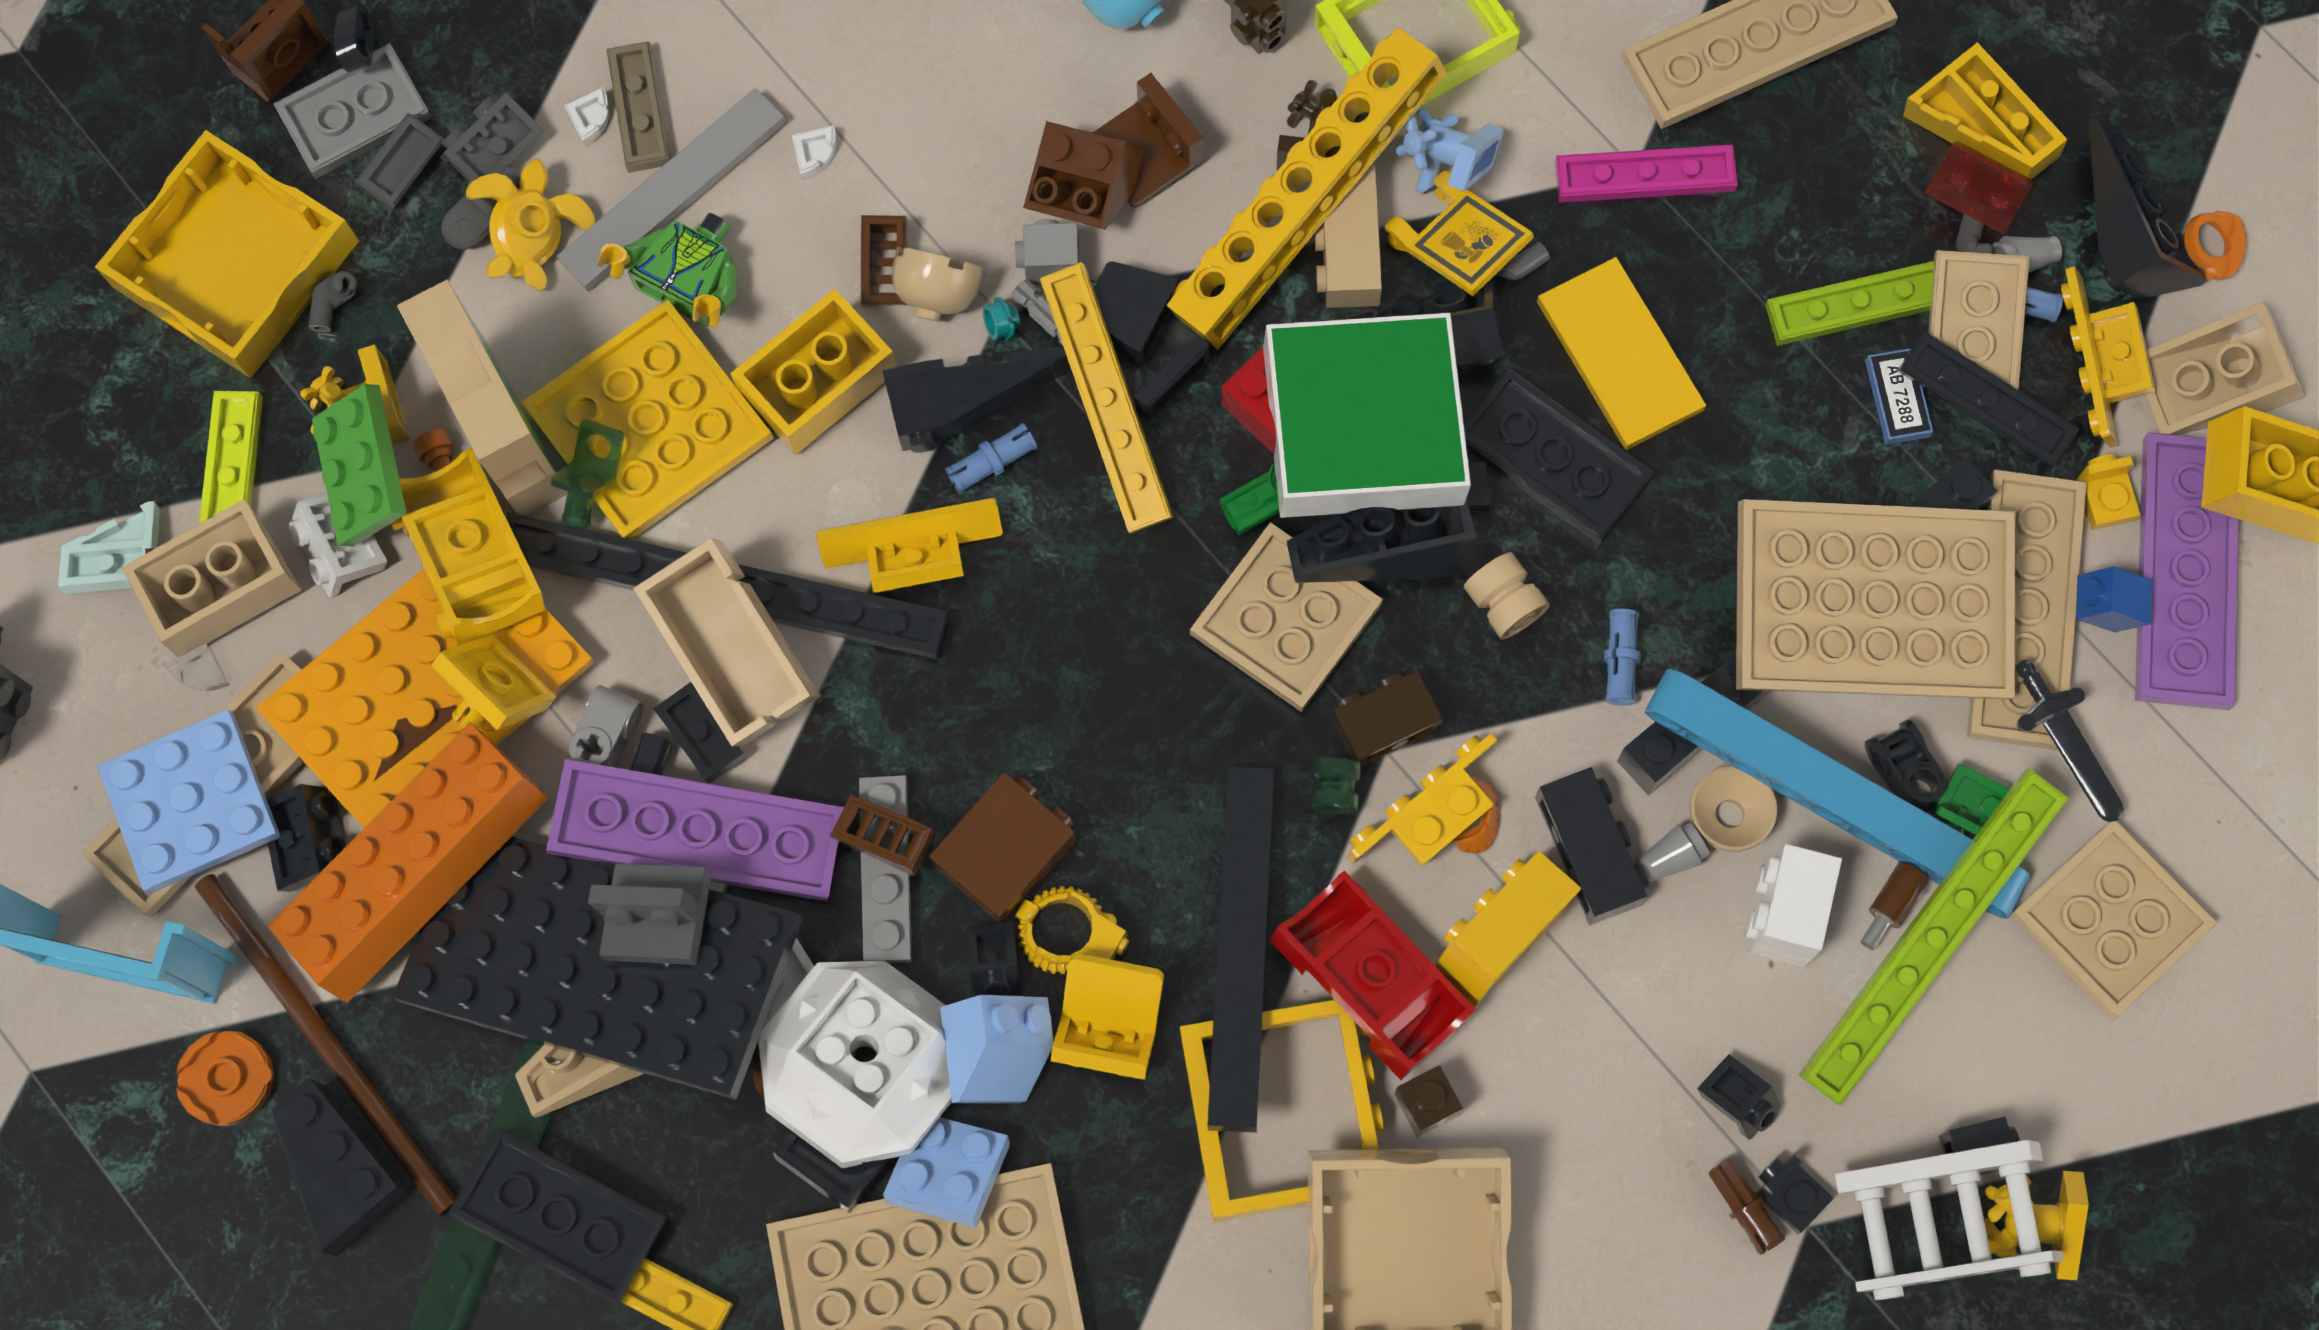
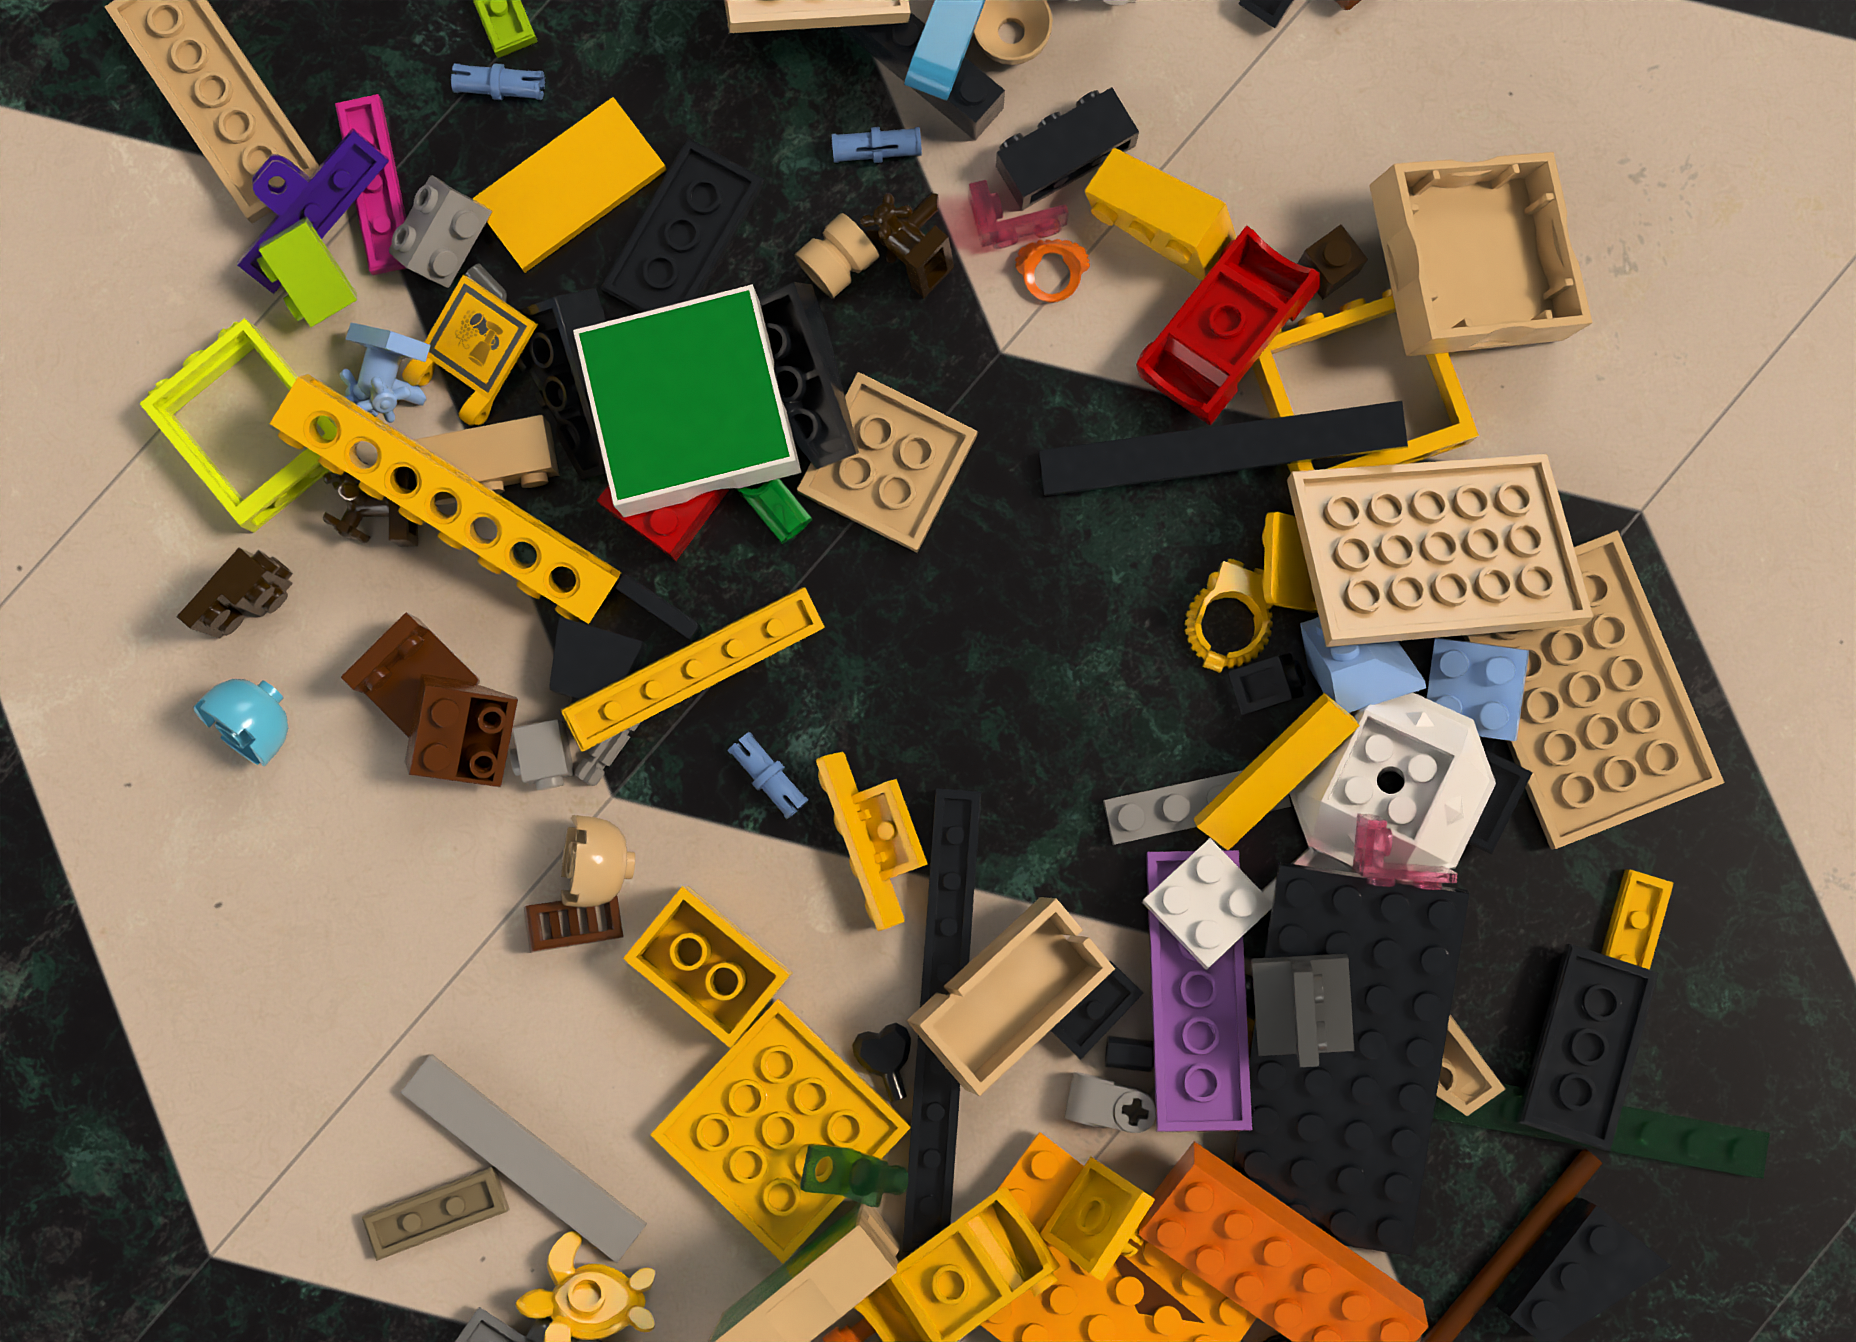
camera: 100 degrees left, 10 degrees up
(590, 115) = (452, 1263): white tile -> none
(681, 267) = (614, 1125): torso -> none
(695, 526) = (885, 1056): none -> black rock
(767, 1014) = (1374, 842): none -> clear pink bracket
(779, 851) = (1208, 903): none -> white plate
(814, 150) = (460, 1018): white tile -> none
(896, 939) = (1276, 771): none -> yellow tile
(916, 851) = (1183, 769): reddish brown slope -> none
(942, 402) = (722, 832): black wedge -> none
(1001, 319) = (620, 791): teal plate -> none
(1004, 846) = (1160, 690): reddish brown brick -> none
(1095, 1146) = (1438, 549): none -> tan plate
(1336, 785) = (1058, 389): clear green wheel -> none
(1386, 718) = (974, 352): dark brown brick -> none
(1437, 813) = (1059, 294): yellow bracket -> none
(1488, 676) = (925, 256): none -> dark brown piece
(1534, 753) = (1005, 233): none -> clear pink bracket
(1557, 94) = (306, 272): none -> lime brick
(1582, 219) = (438, 232): none -> light grey bracket
(1626, 101) = (320, 197): none -> dark purple plate
(1675, 852) = (1059, 73): light grey cone -> none
(1736, 299) = (498, 81): none -> medium blue pin

